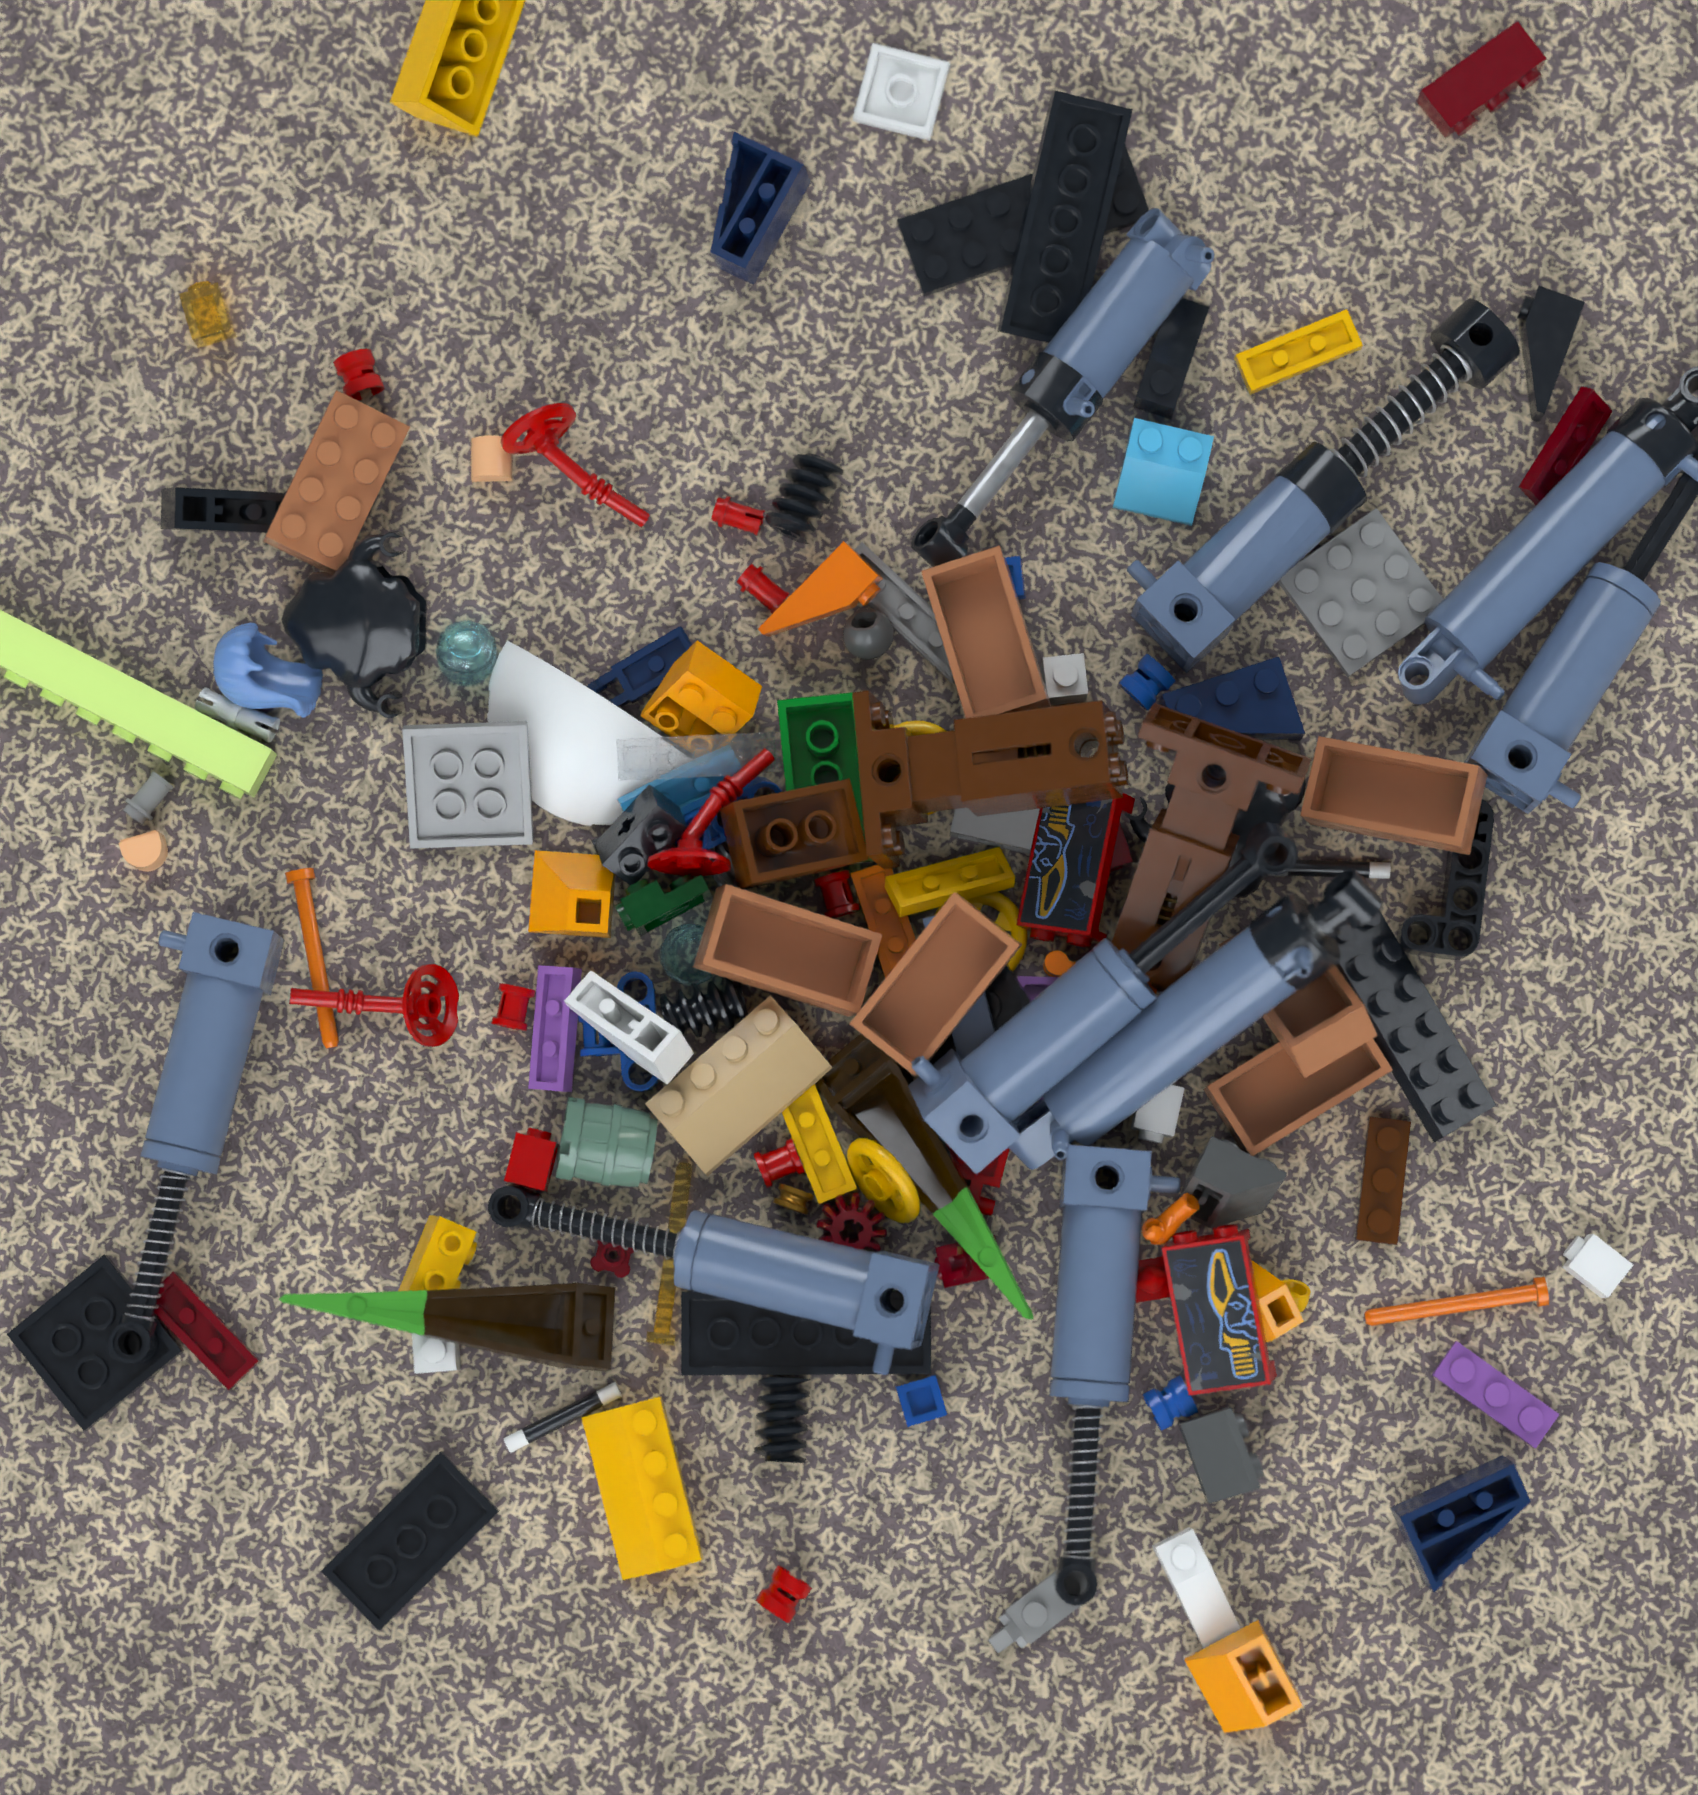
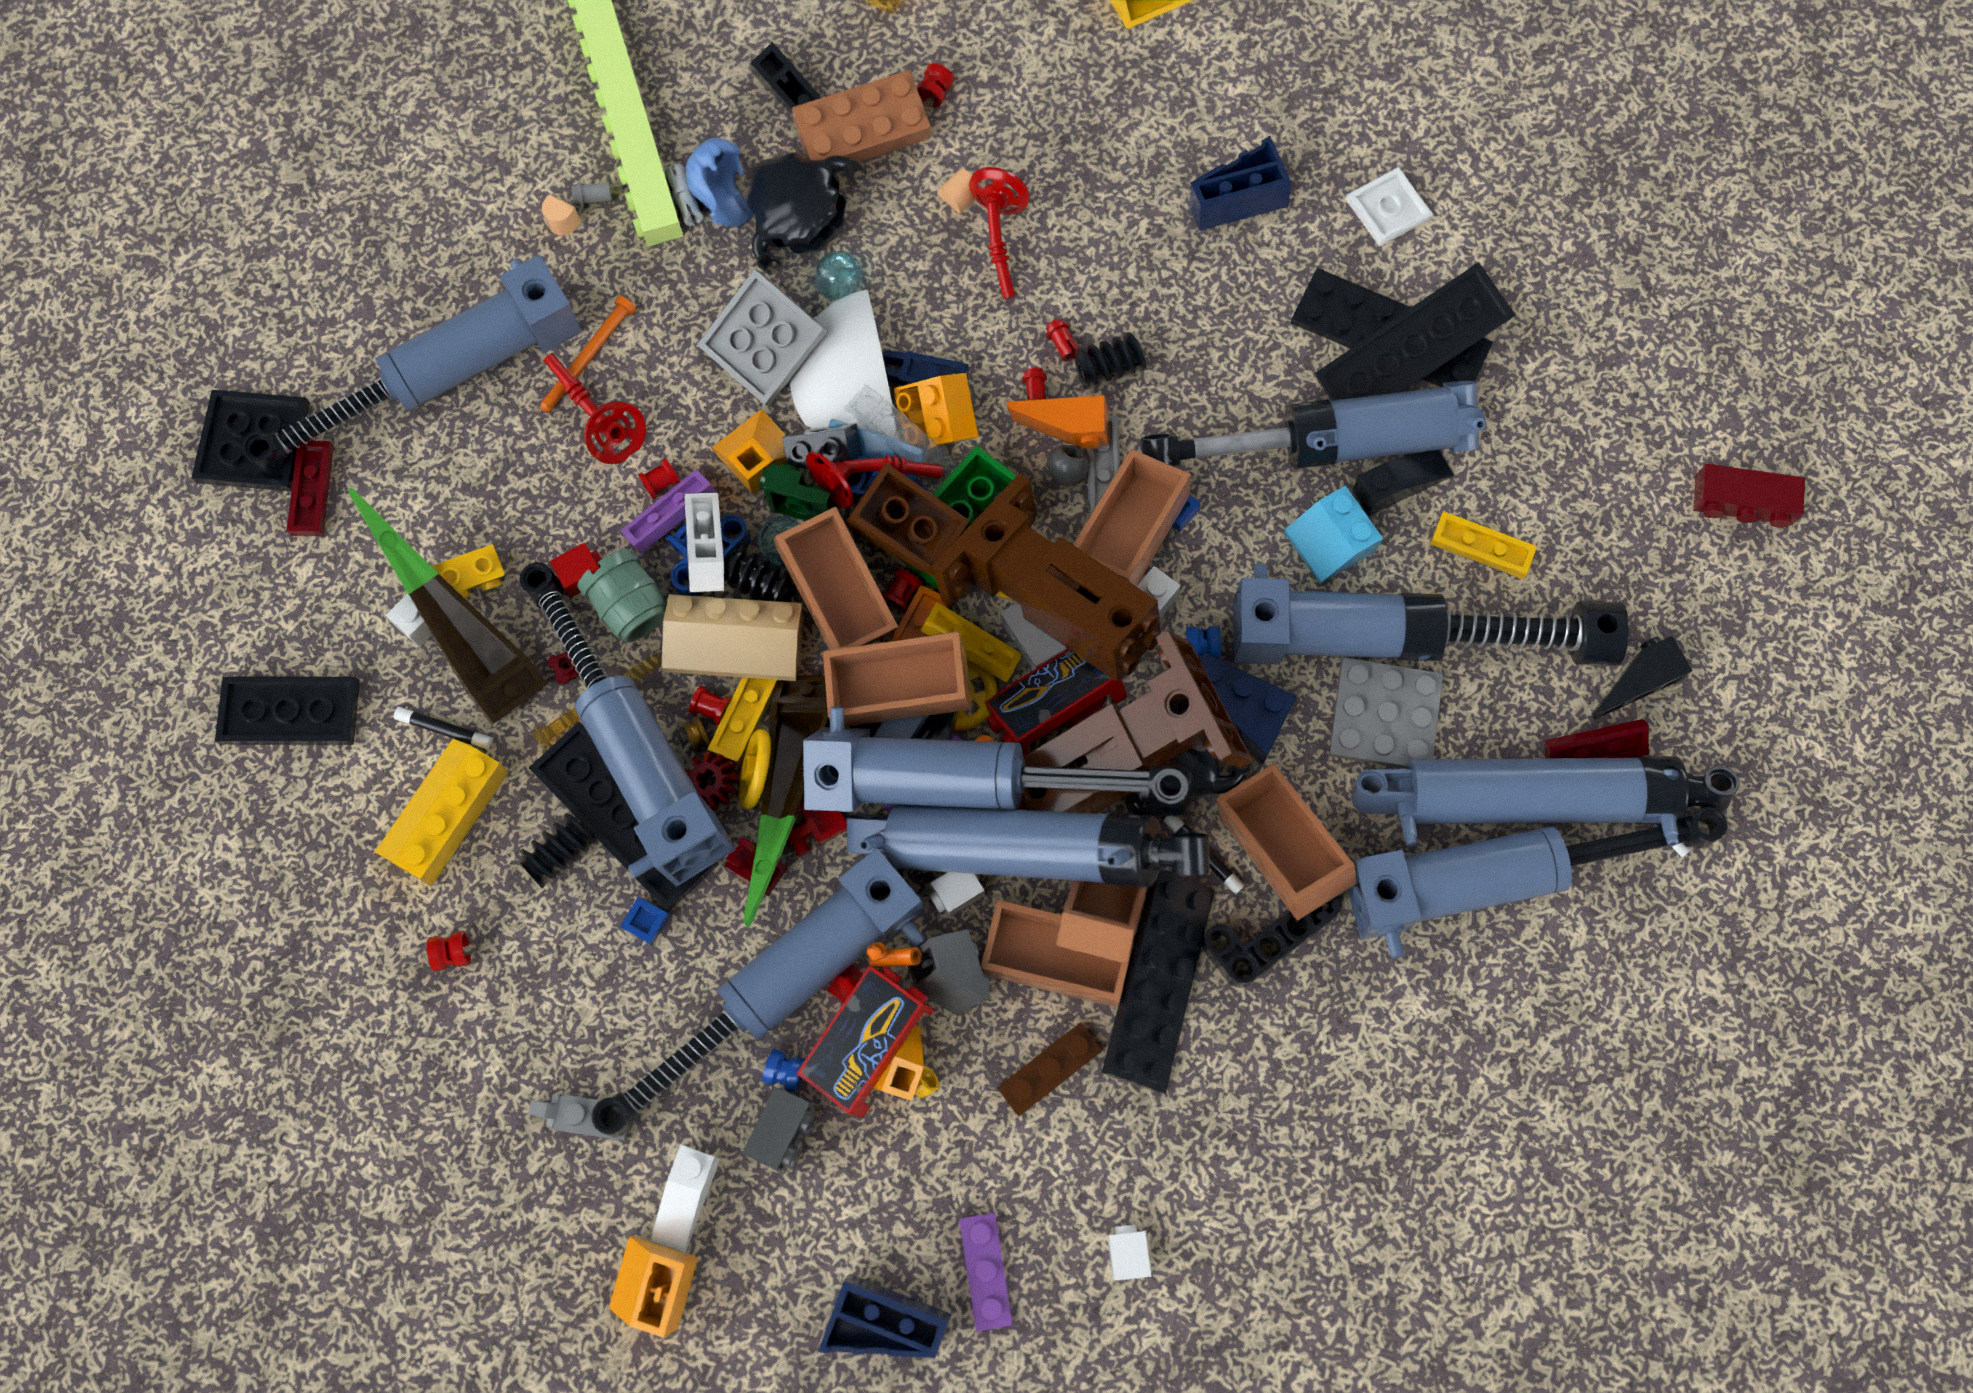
camera: 45 degrees right, 10 degrees down
(1536, 1292) = (1021, 1193): orange bar -> none

